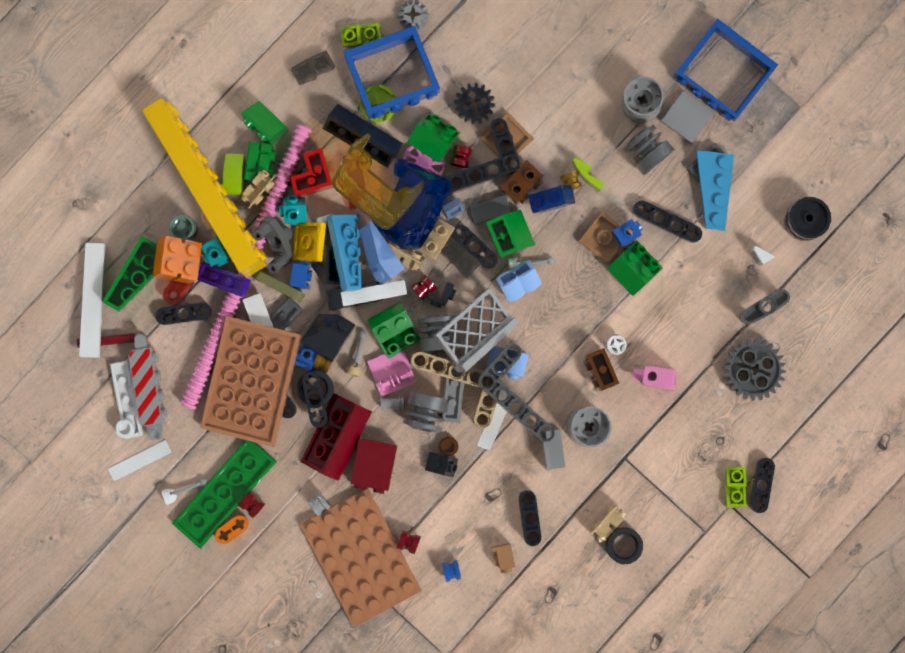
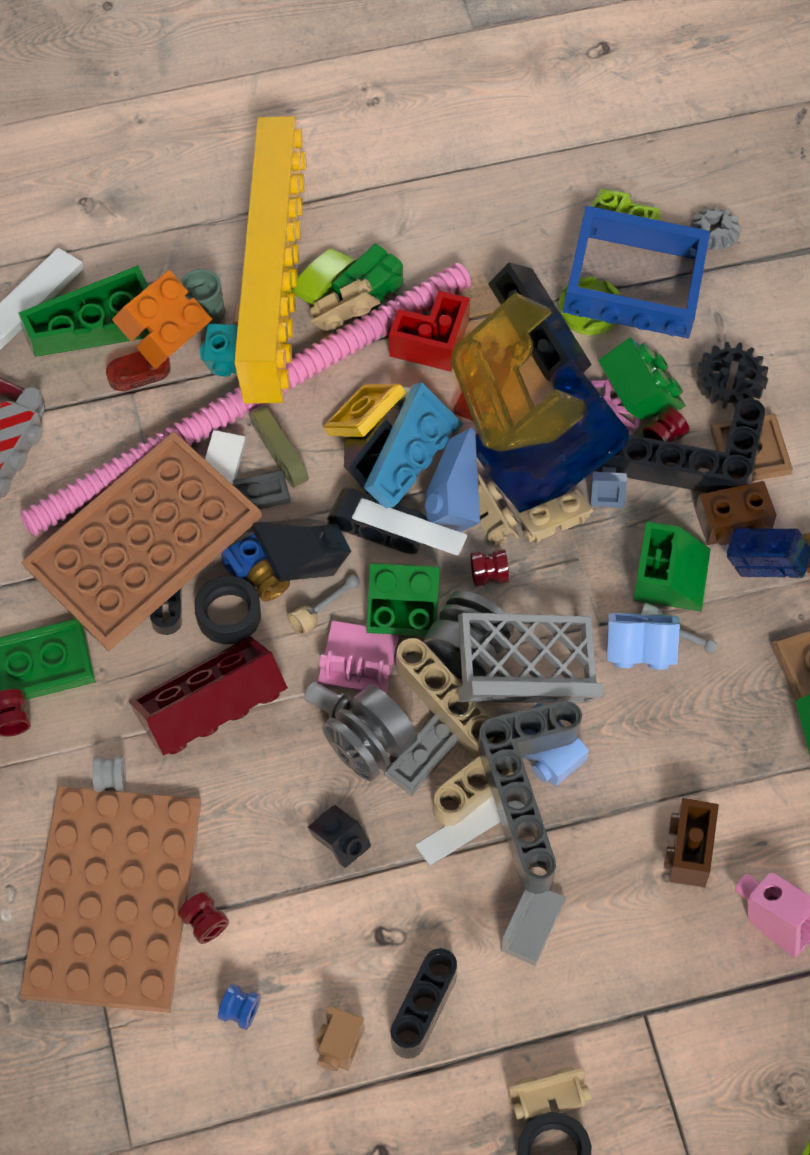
camera: 35 degrees right, 25 degrees down
(197, 306) = (111, 395): black beam -> none
(223, 279) = (206, 389): dark purple tile -> none
(266, 124) = (411, 234): green slope -> none
(278, 239) = (323, 381): dark grey connector -> none
(293, 210) = (383, 361): teal brick -> none
(301, 275) = (320, 450): blue brick -> none
(312, 67) = (520, 210): clear smoke slope -> none
(322, 403) = (214, 600): black beam -> none
(373, 465) = (234, 769): dark red brick -> none
(448, 294) = (515, 598): black bracket -> none
(448, 446) = (371, 816): reddish brown tile -> none
(459, 257) = (572, 558): clear smoke slope -> none
(489, 252) = (608, 547): black beam -> none
(490, 209) = (645, 513): dark grey tile -> none
(599, 429) = (630, 900): light grey wheel -> none
(619, 343) = (742, 817): white wheel -> none

